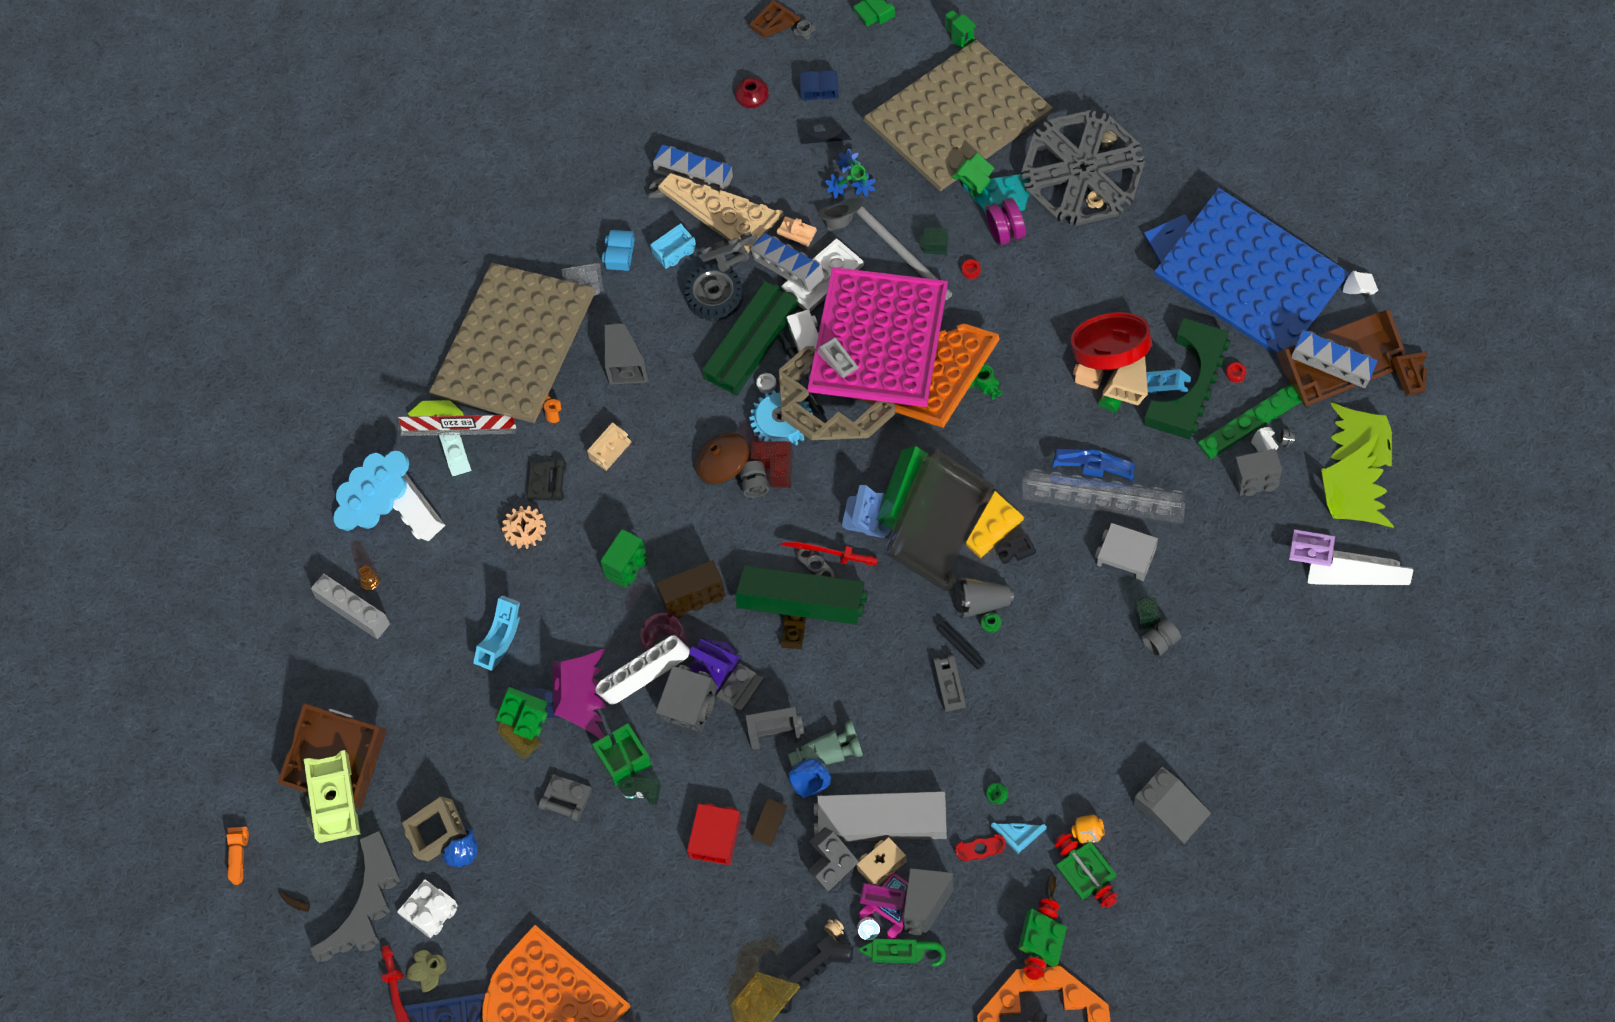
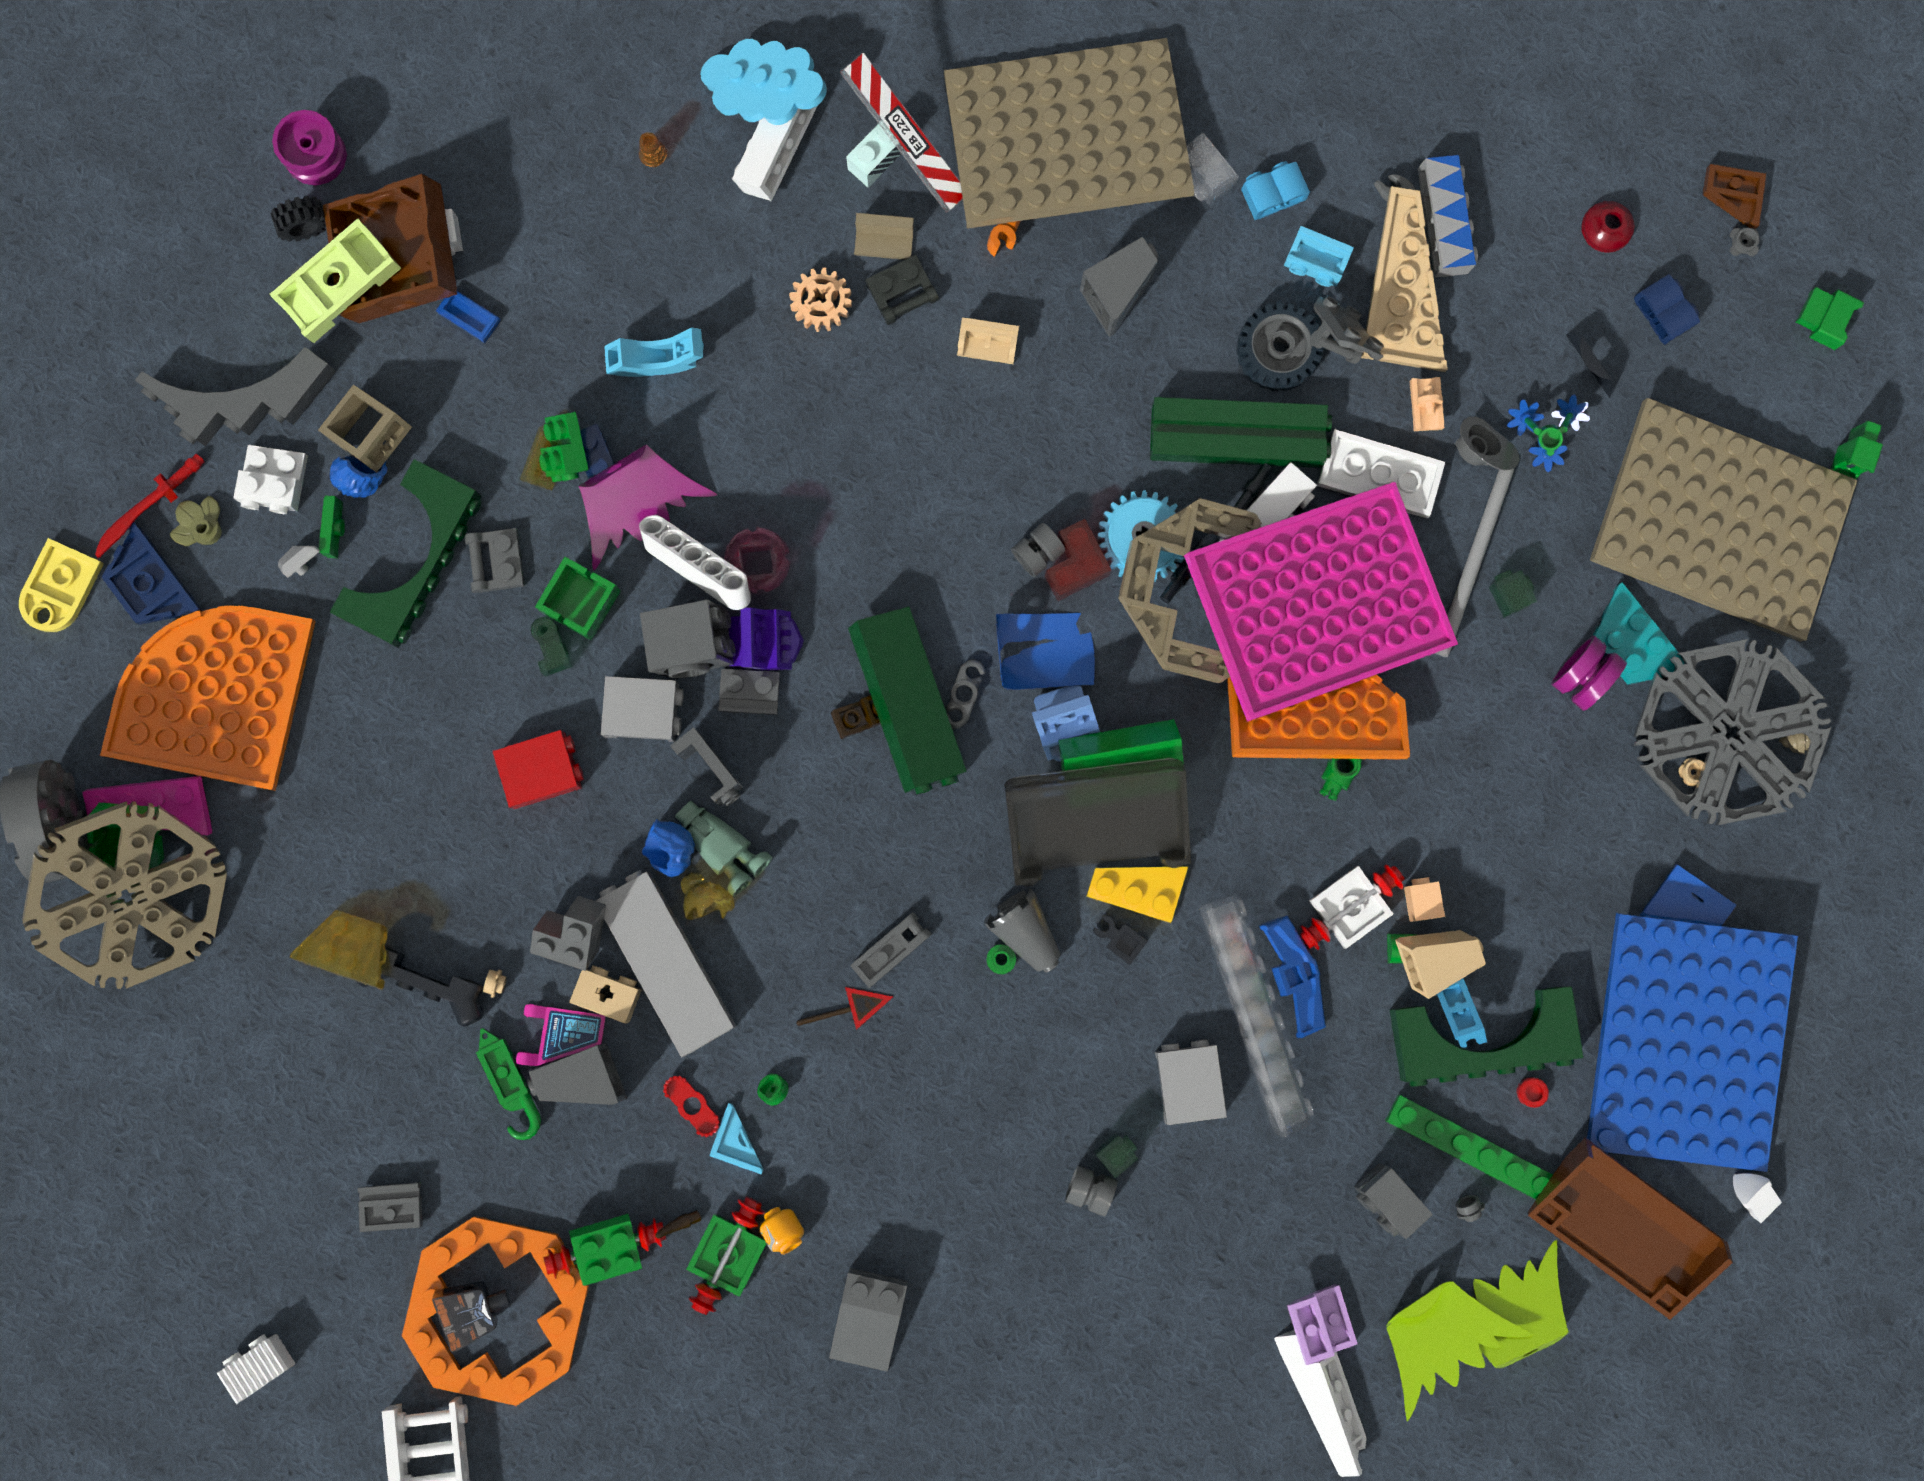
camera: 50 degrees right, 20 degrees up
(234, 776) = (309, 147): none -> magenta wheel
(236, 839) = (241, 201): orange piece -> none
(275, 803) = (299, 218): none -> black tyre
(295, 903) = (199, 318): dark brown helmet -> none
(350, 606) = (601, 150): light grey brick -> none
(401, 738) = (469, 316): none -> blue tile
(436, 408) = (919, 84): lime tile -> none
(483, 884) = (331, 526): none -> green plate
(489, 916) = (296, 558): none -> light grey piece
(507, 474) = (884, 236): none -> dark tan panel
(513, 807) = (393, 612): none -> dark green arch
(624, 559) = (837, 451): green piece -> none
(691, 589) = (838, 559): dark brown piece -> none
(712, 753) = (641, 708): none -> light grey panel
(722, 457) = (1046, 493): reddish brown dish -> none
(766, 383) = (1187, 488): white tile -> none
(769, 821) = (589, 828): dark brown slope -> none
(787, 262) = (1372, 419): light grey brick -> none
(828, 504) = (1050, 664): none -> blue piece
(837, 358) = (1251, 568): light grey slope -> none
(845, 555) = (996, 725): red sword -> none
(854, 772) = (704, 897): none -> clear yellow piece
(868, 928) = (514, 1025): tile -> none
(882, 896) = (561, 1022): magenta tile -> none
(961, 645) = (950, 937): black axle -> none
(971, 269) = (1498, 661): red tile -> none
(972, 717) = (862, 1005): none -> piece
(974, 174) = (1639, 593): green piece -> none
(1070, 413) = (1351, 907): none -> white plate
(1111, 340) = (1482, 909): red brick -> none
(1263, 441) = (1444, 1185): white tile -> none
(1334, 358) = (1617, 1222): light grey brick -> none
(1411, 372) = (1656, 1331): reddish brown wing -> none

